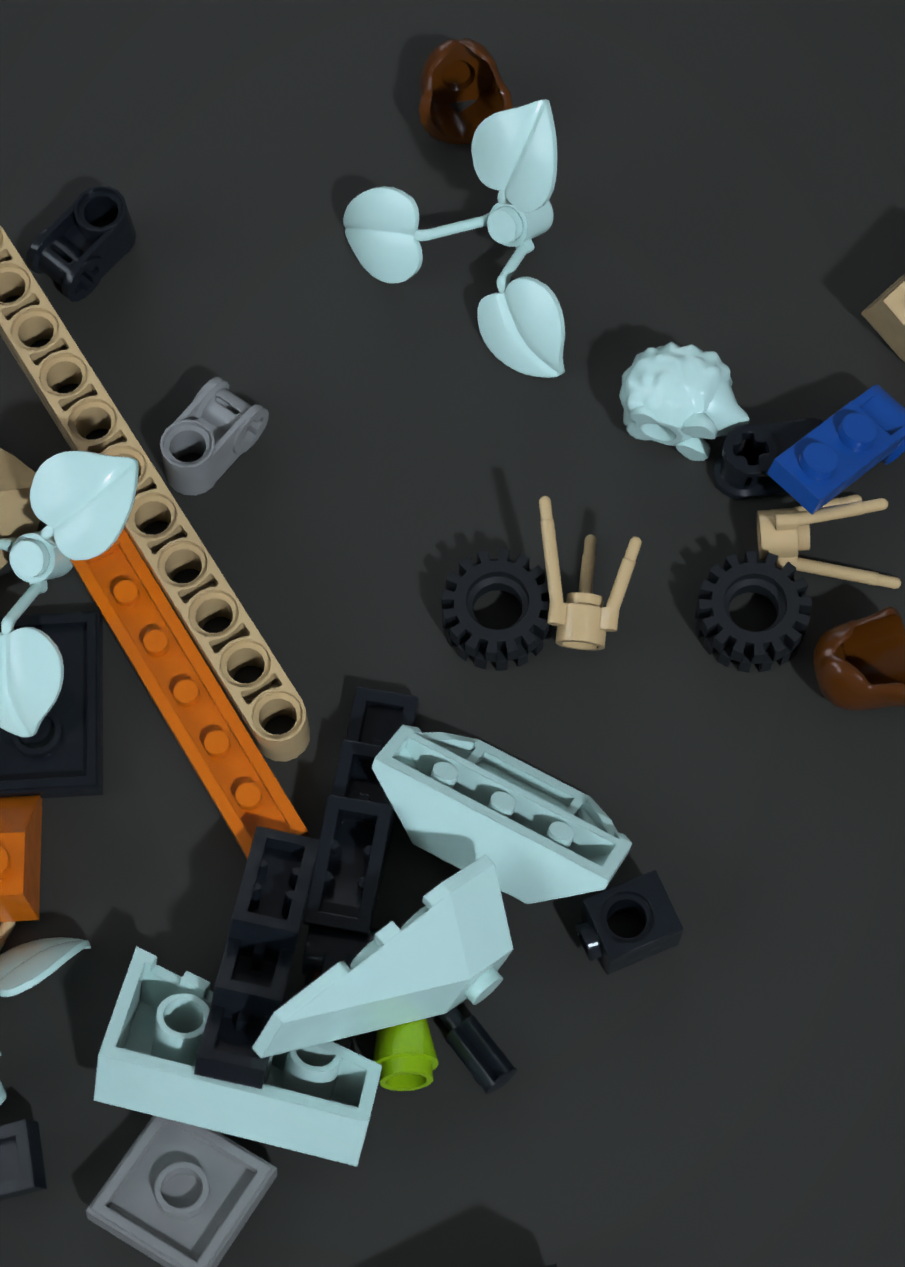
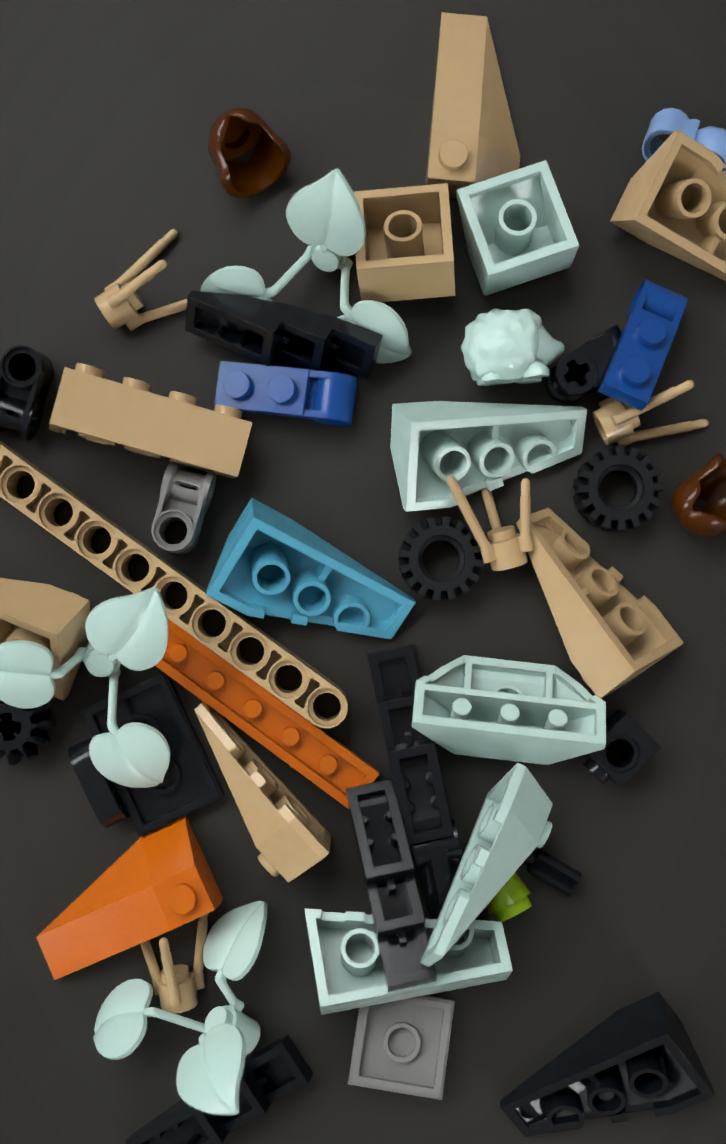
camera: 25 degrees left, 20 degrees up
(149, 831) = (276, 819): none -> tan wedge
(214, 319) = (150, 422): none -> tan wedge
(248, 194) = (120, 300): none -> tan plant
(311, 560) = (293, 574): none -> medium azure wedge
(426, 289) = (271, 328): none -> black slope
(426, 368) = (287, 392): none -> blue plate
(600, 497) = (476, 445): none -> light aqua wedge
(602, 239) = (406, 244): none -> tan brick
(665, 760) = (600, 622): none -> tan wedge
(734, 155) = (470, 113): none -> tan wedge
(741, 274) = (516, 228): none -> light aqua slope

